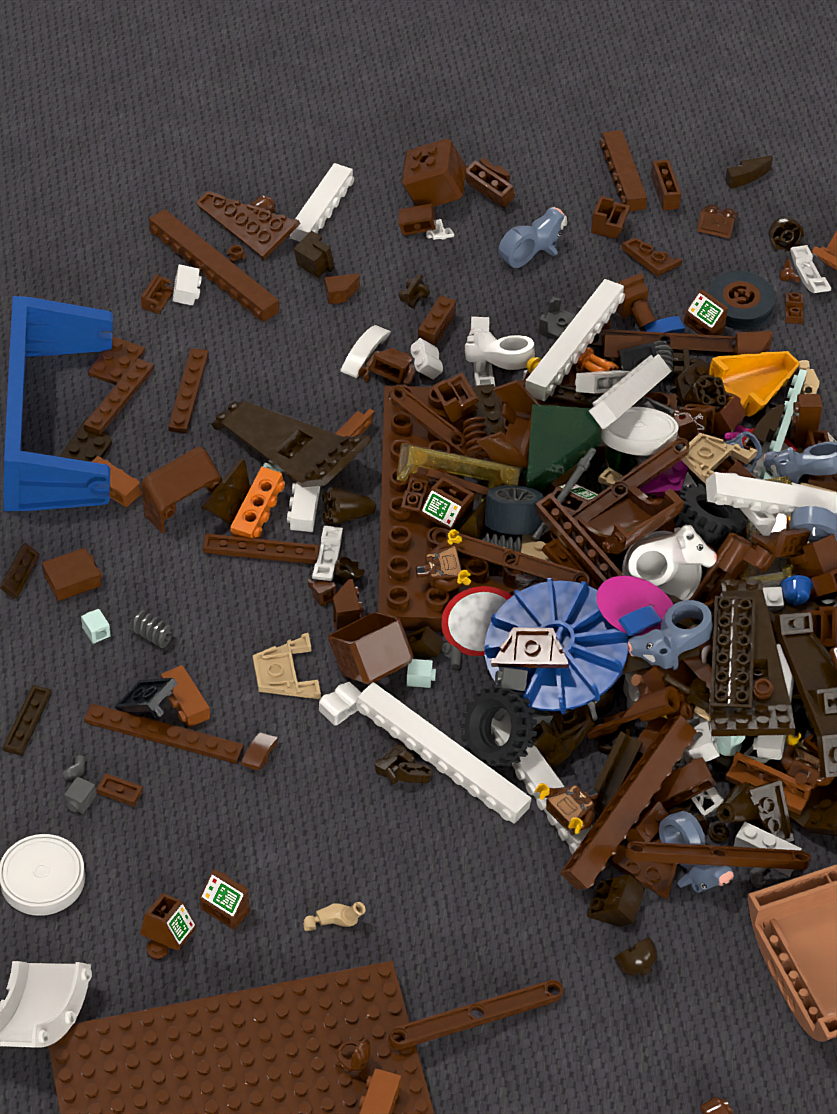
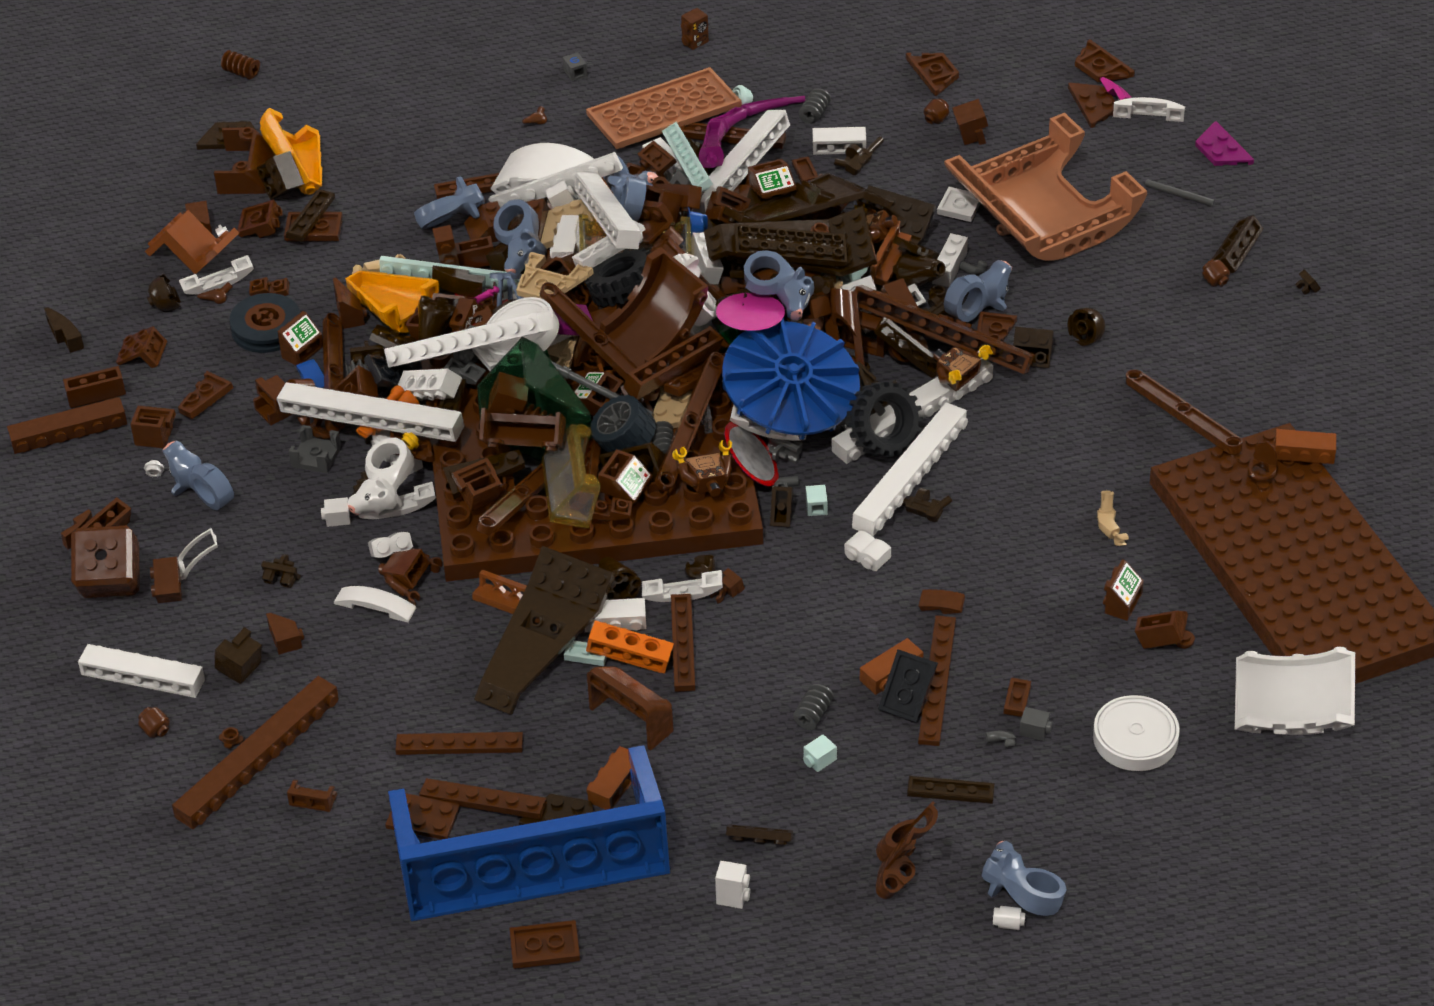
camera: 95 degrees left, 5 degrees down
(72, 574) = (754, 787): reddish brown brick -> none
(186, 285) = (295, 766): white brick -> none
(229, 494) = (632, 667): dark brown wing -> none
(250, 224) = (189, 722): reddish brown wing -> none
(277, 673) = (835, 606): tan wing -> none
(346, 605) = (756, 555): reddish brown slope -> none
(371, 647) = (799, 517): reddish brown plate -> none
(414, 772) = (937, 486): dark brown beam -> none
(437, 320) = (330, 545): reddish brown brick -> none
(473, 432) = (526, 467): reddish brown piece -> none
(511, 678) = (842, 399): dark grey brick -> none
(531, 649) = (813, 381): wing -> none
(639, 620) = (771, 302): blue slope -> none
(718, 855) = (990, 274): reddish brown beam -> none

